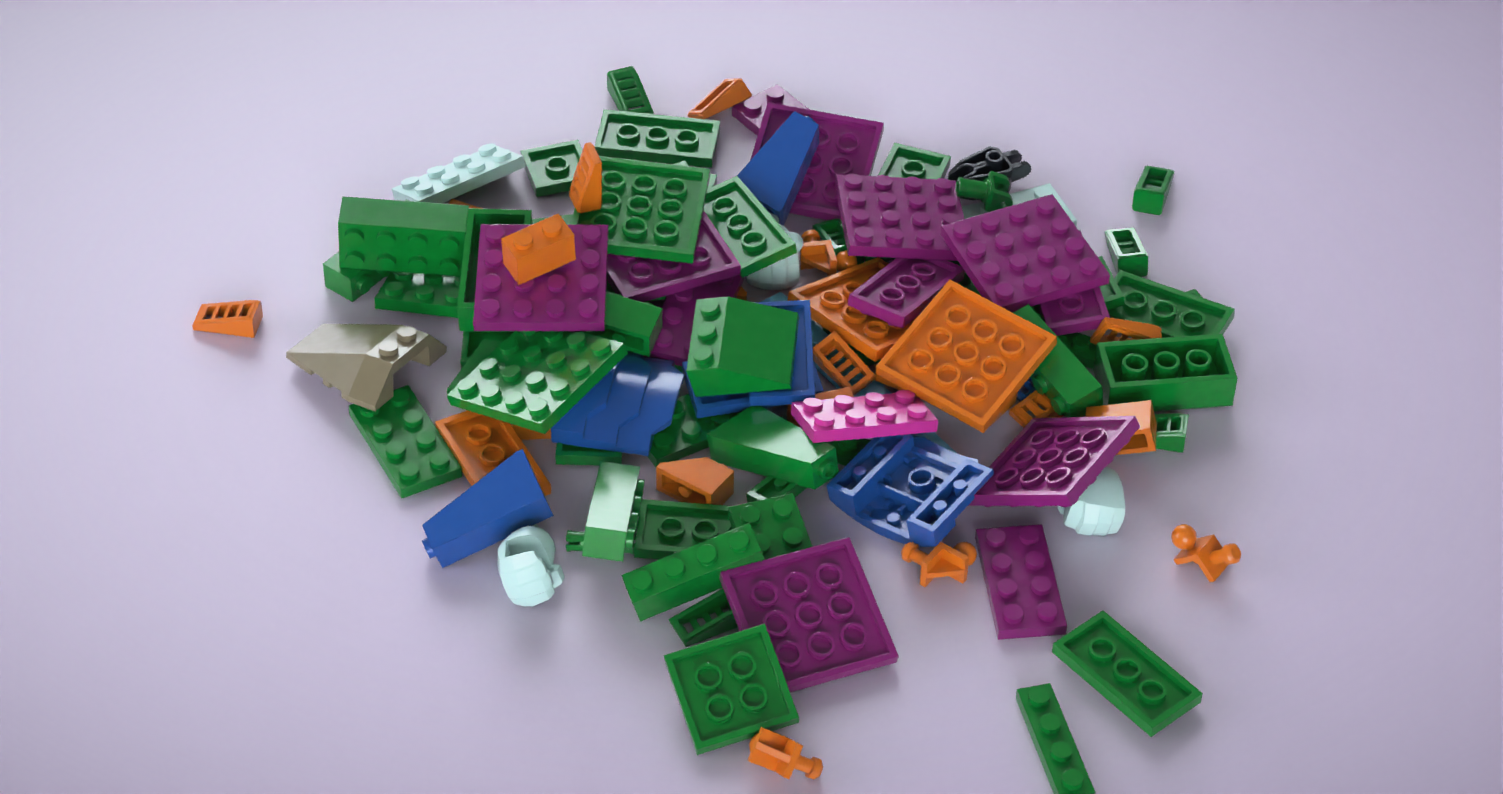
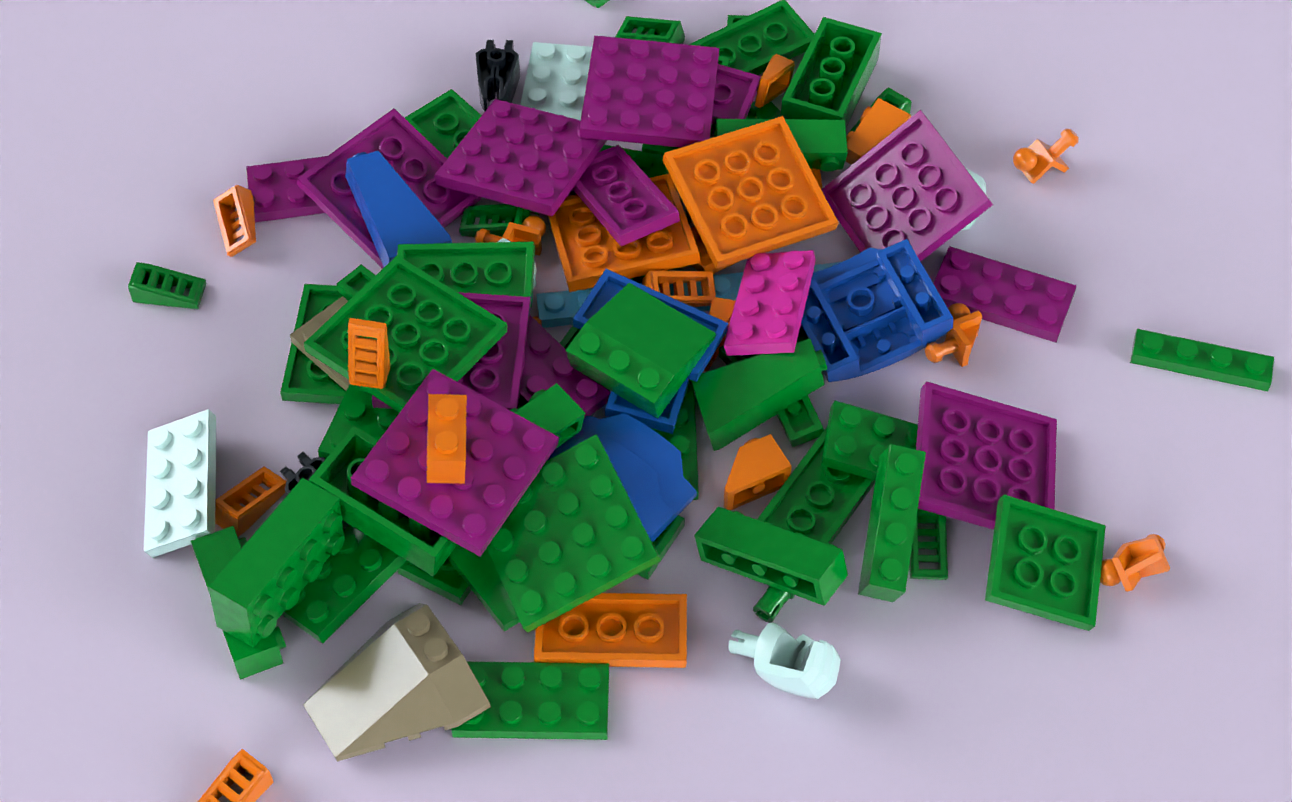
camera: 60 degrees left, 10 degrees up
(487, 512) = (708, 656): blue slope -> none
(552, 166) = (229, 391): plate -> none
(657, 138) = (248, 293): green plate -> none
(989, 191) = (529, 84): green piece -> none
(1127, 673) = (1150, 272): green plate -> none

